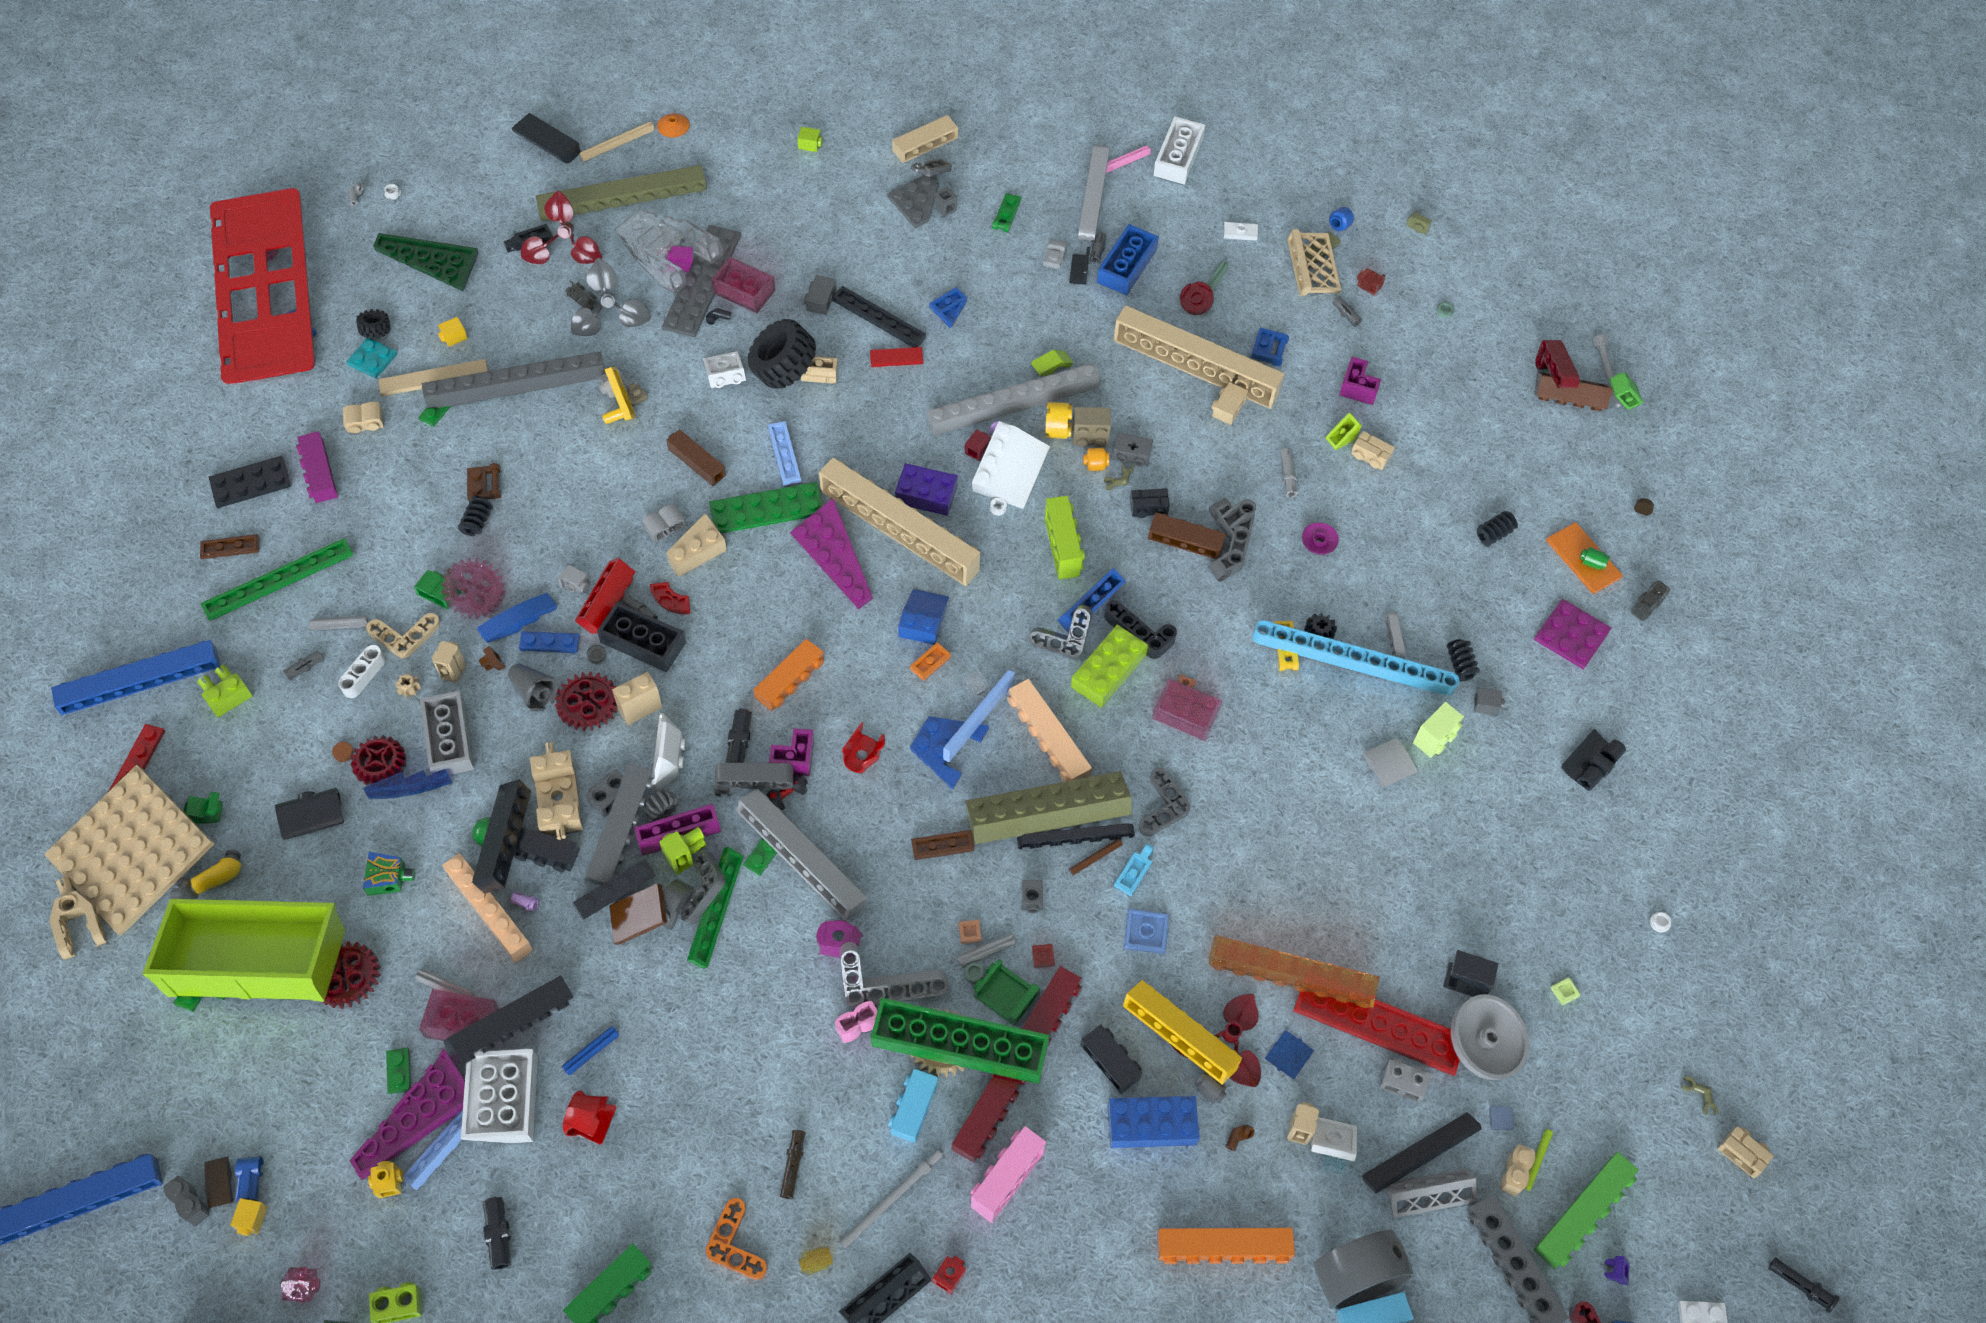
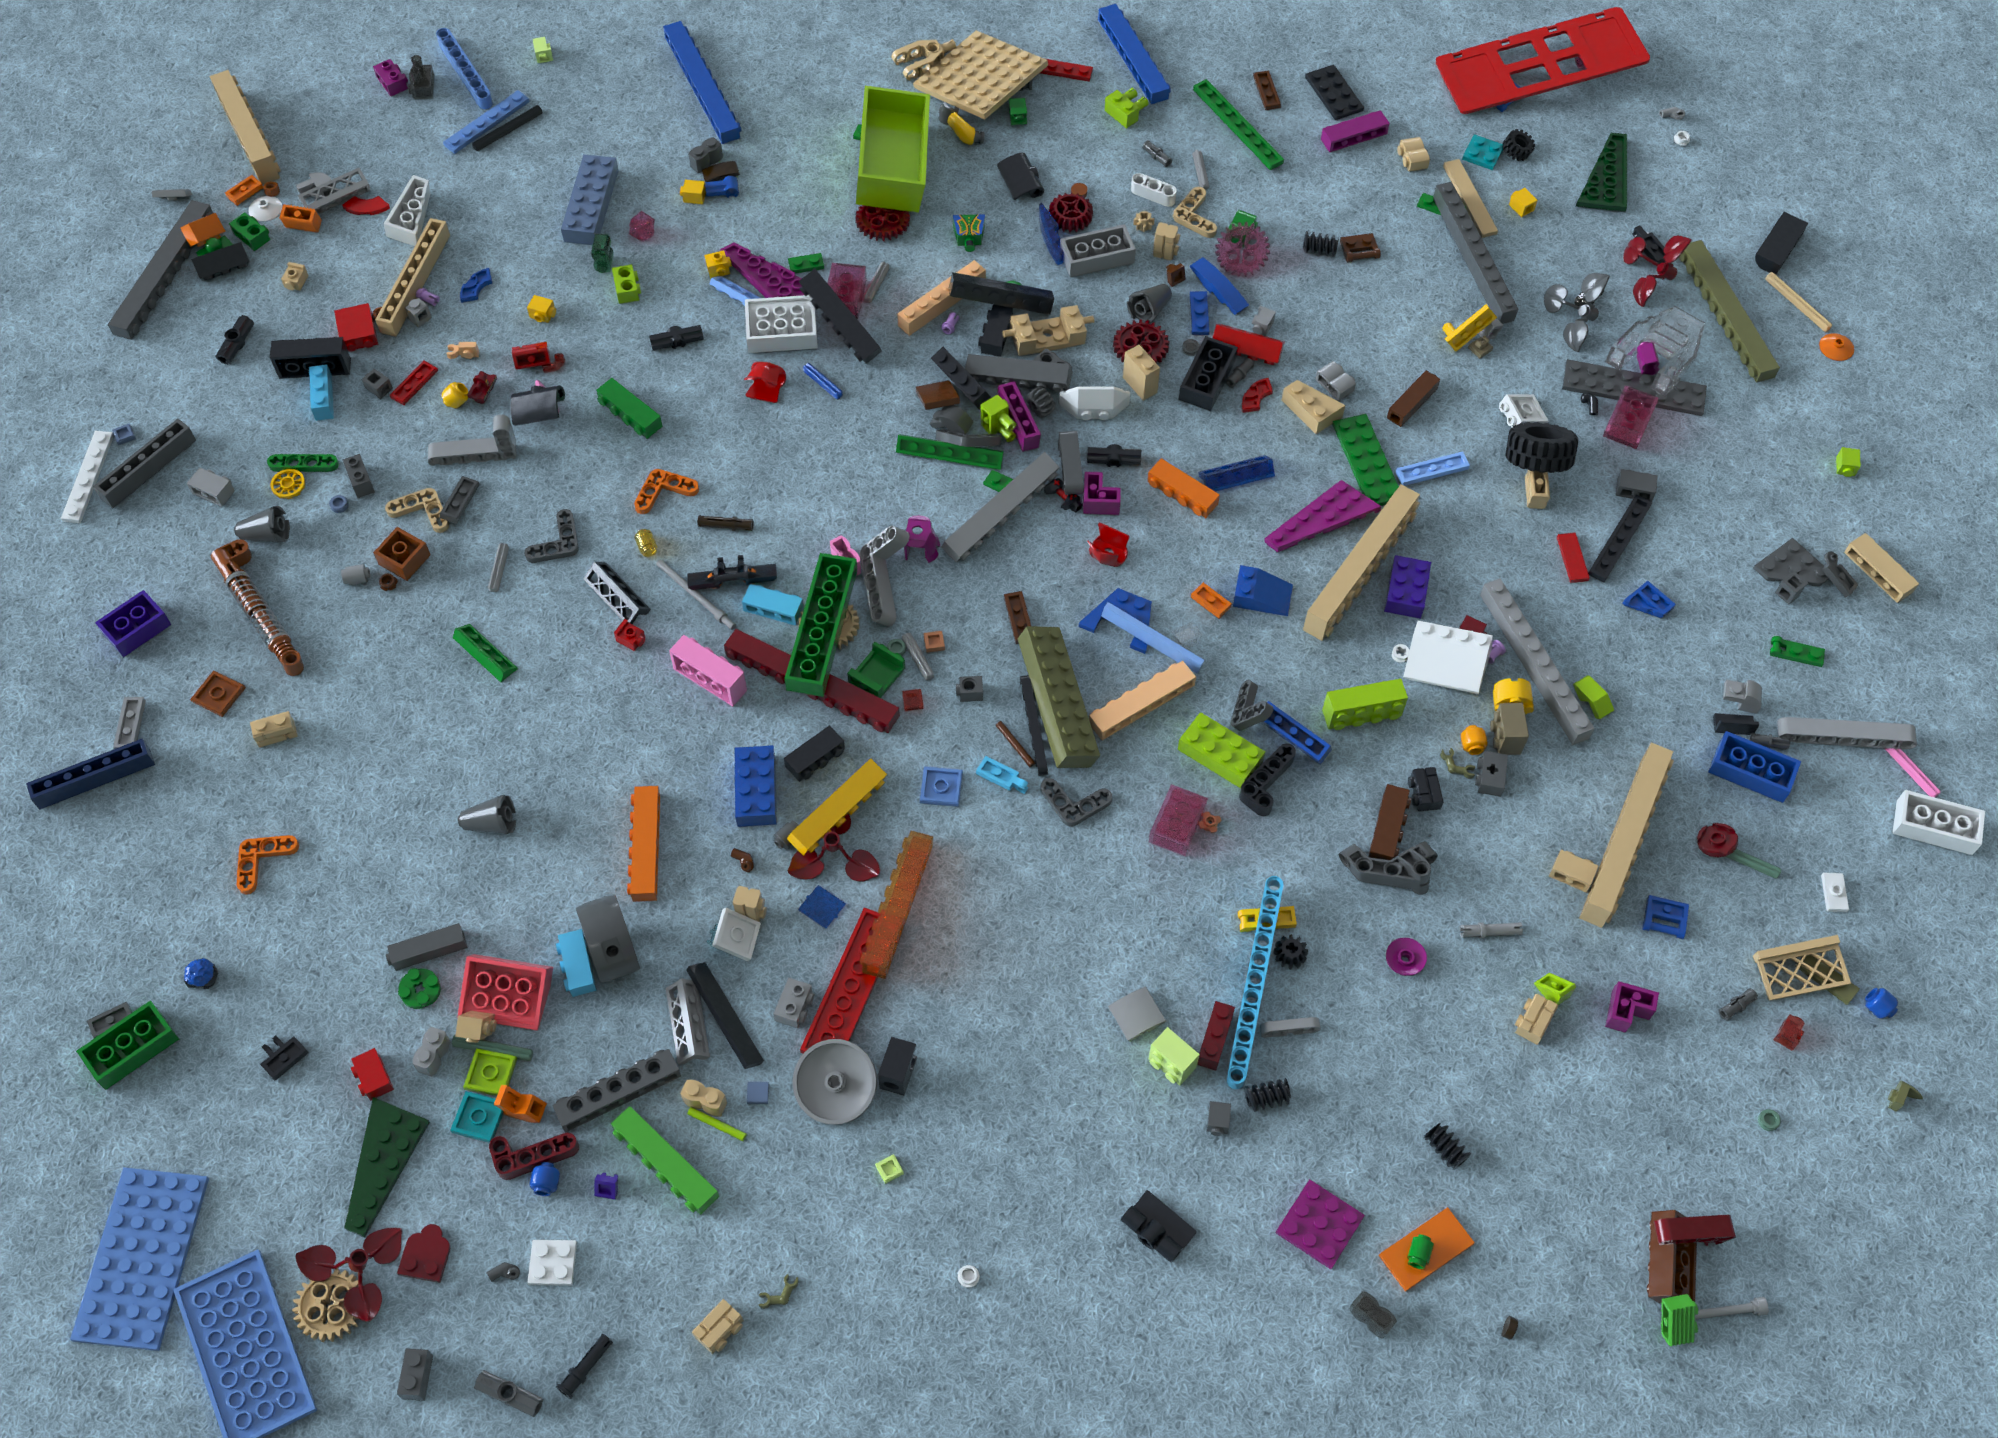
camera: 90 degrees right, 0 degrees up
(774, 620) = (1238, 473): none -> clear blue fence
(872, 1172) = (721, 574): none -> black piece
(1410, 696) = (1215, 1035): none -> dark red brick

